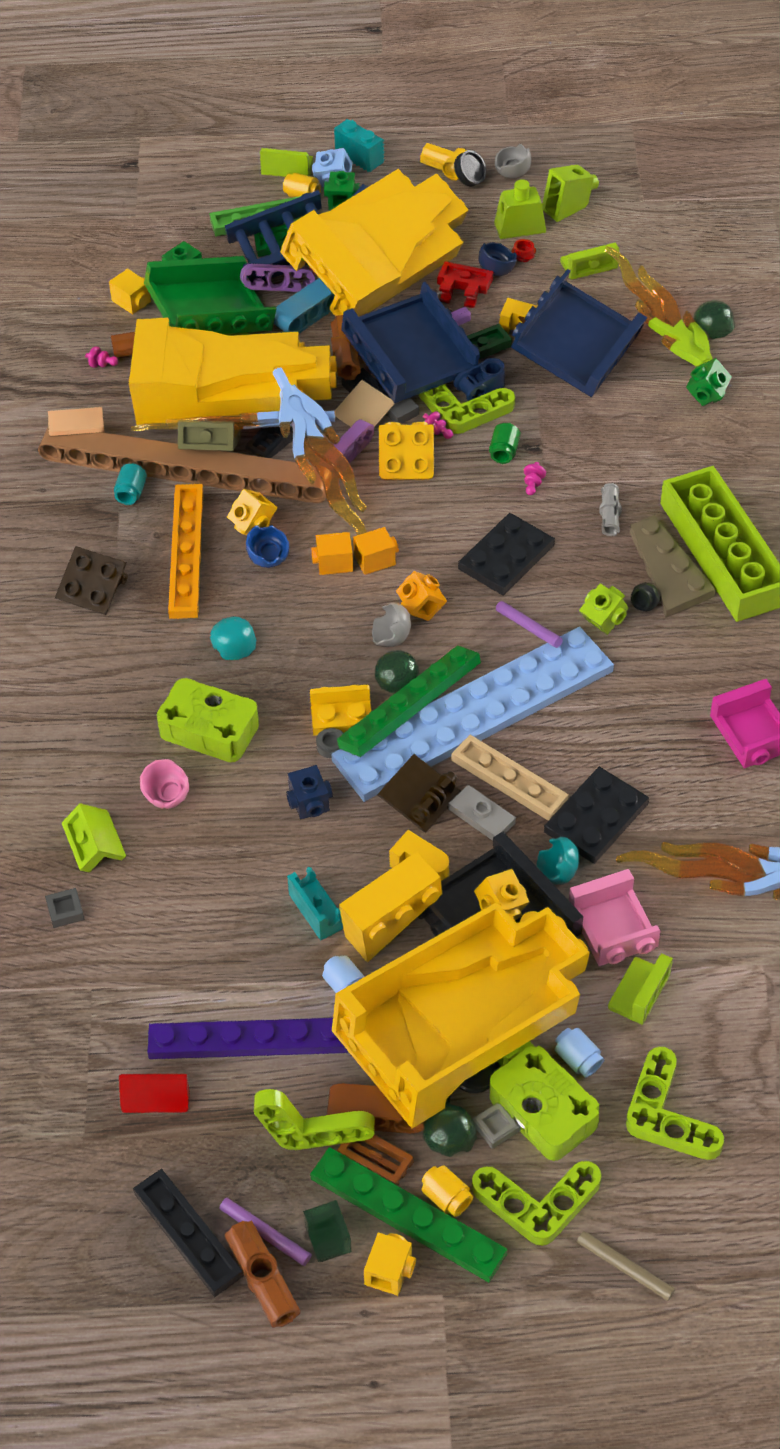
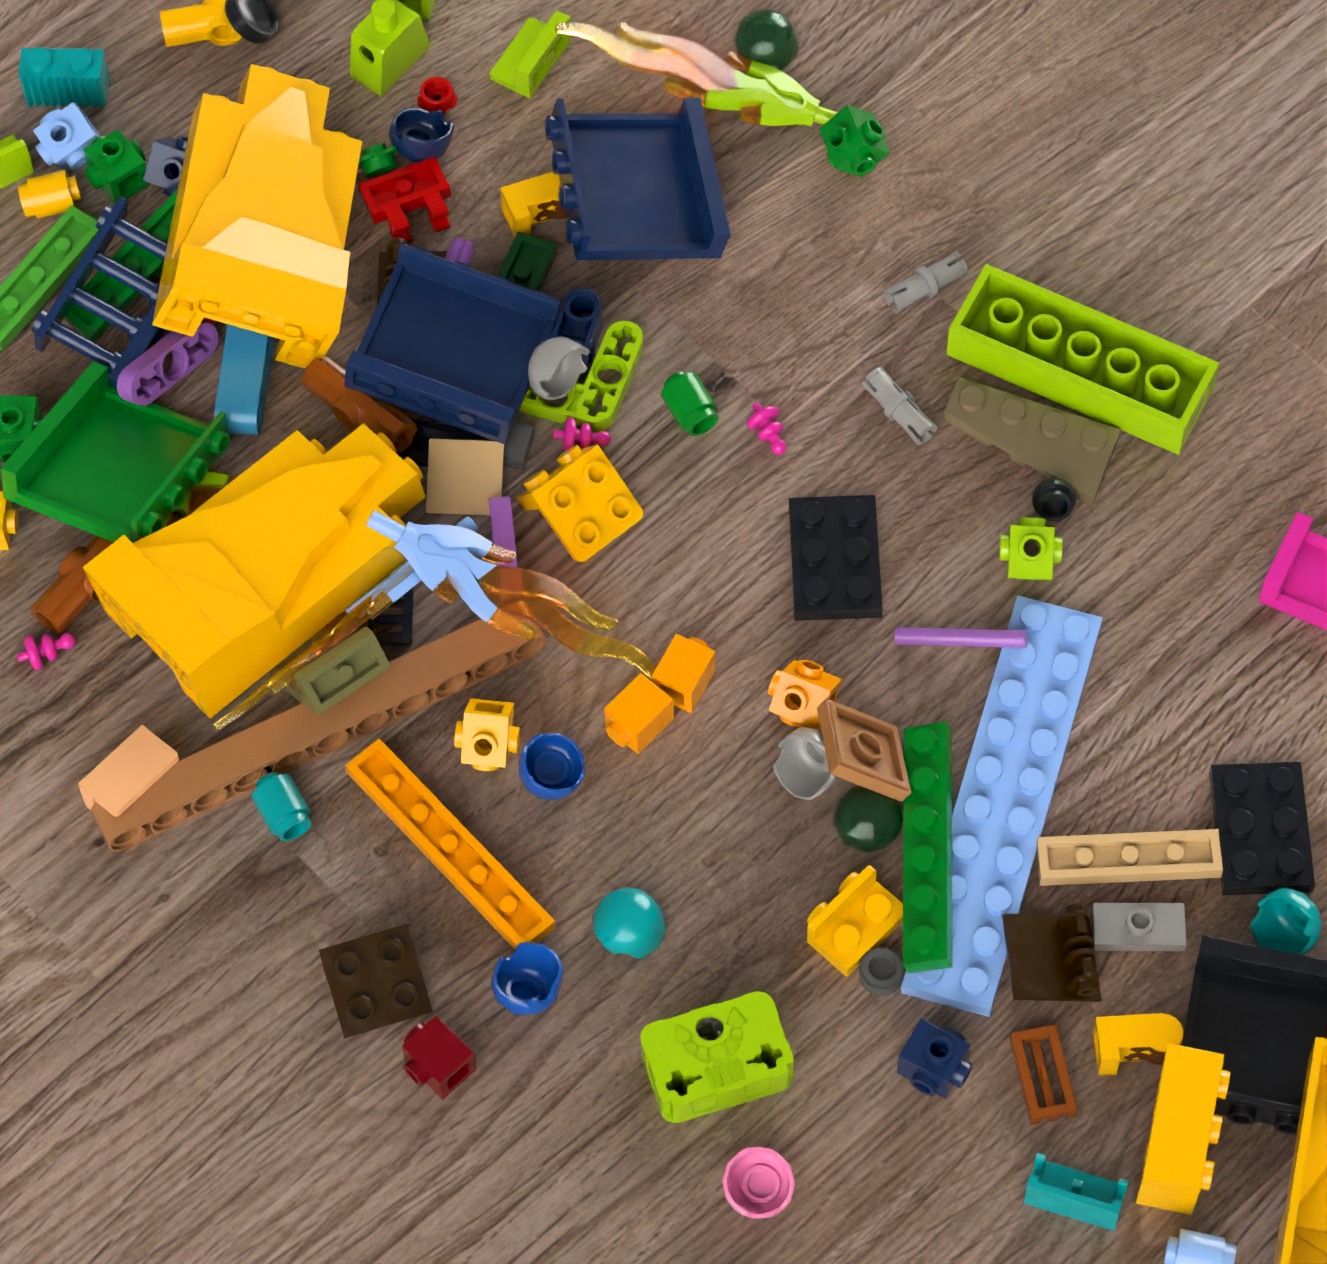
camera: 40 degrees left, 10 degrees up
(81, 630) = (437, 1057): none -> dark red brick
(156, 626) = (528, 979): none -> blue hair
(348, 863) = (1051, 1110): none -> dark orange tile
(420, 634) = (863, 750): none -> medium nougat plate
(449, 382) = (556, 367): none -> light grey hair
(465, 256) = (377, 160): none -> green plate
(504, 890) = (1279, 1018): yellow brick -> none
(679, 465) = (925, 282): none -> light grey pin

